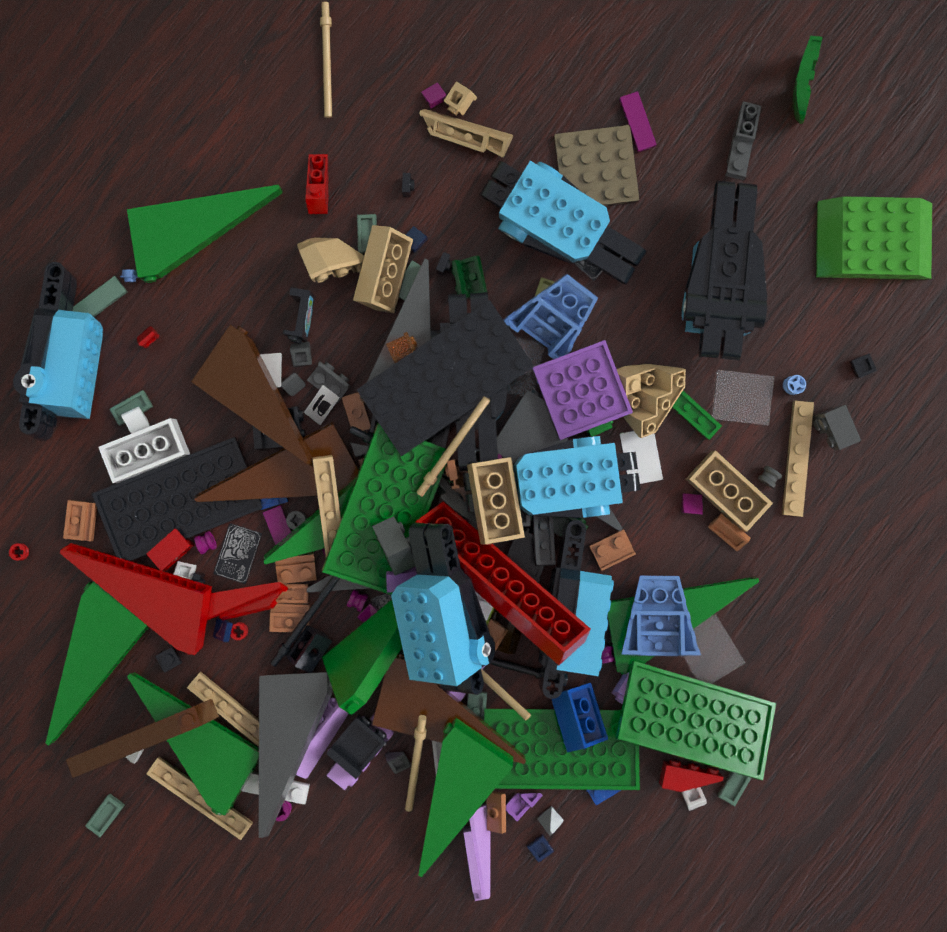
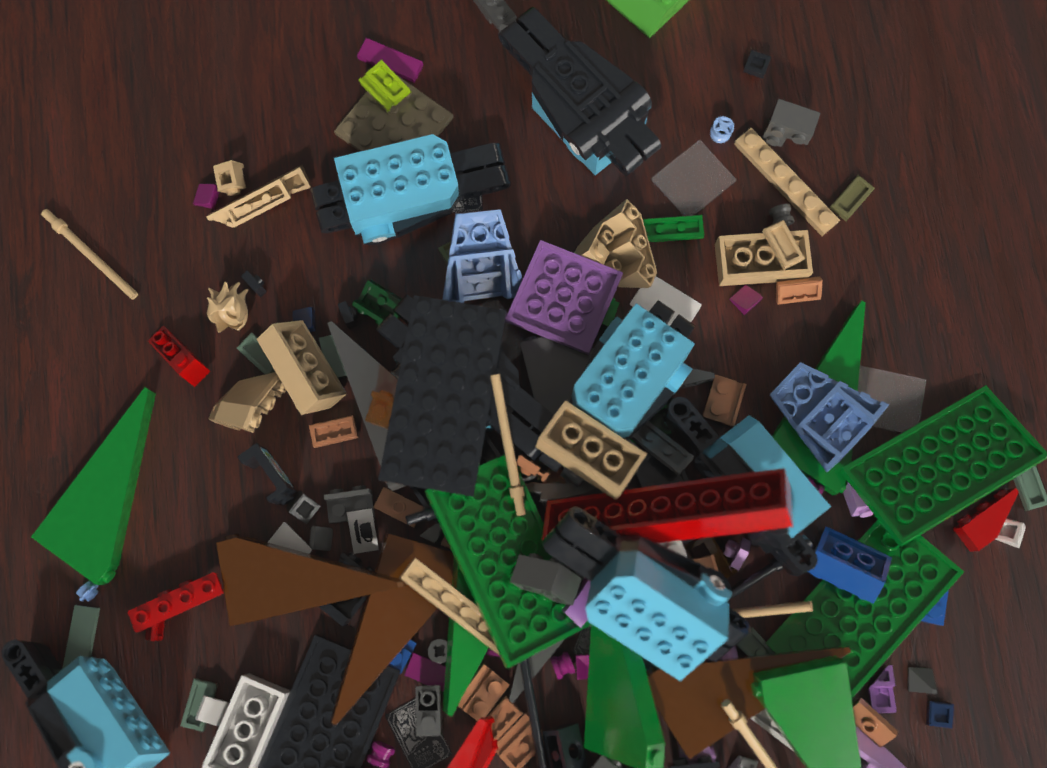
camera: 45 degrees left, 10 degrees down
(172, 335) = (175, 602): none -> red bracket
(255, 547) = (429, 711): none -> dark grey slope
(363, 327) = (333, 431): none -> nougat plate
(376, 185) = (227, 307): none -> tan hair
(523, 644) = (737, 552): none -> lavender tile
(615, 138) = (384, 86): none -> lime plate
(747, 496) = (783, 244): none -> tan tile
(826, 510) = (852, 198): none -> olive tile

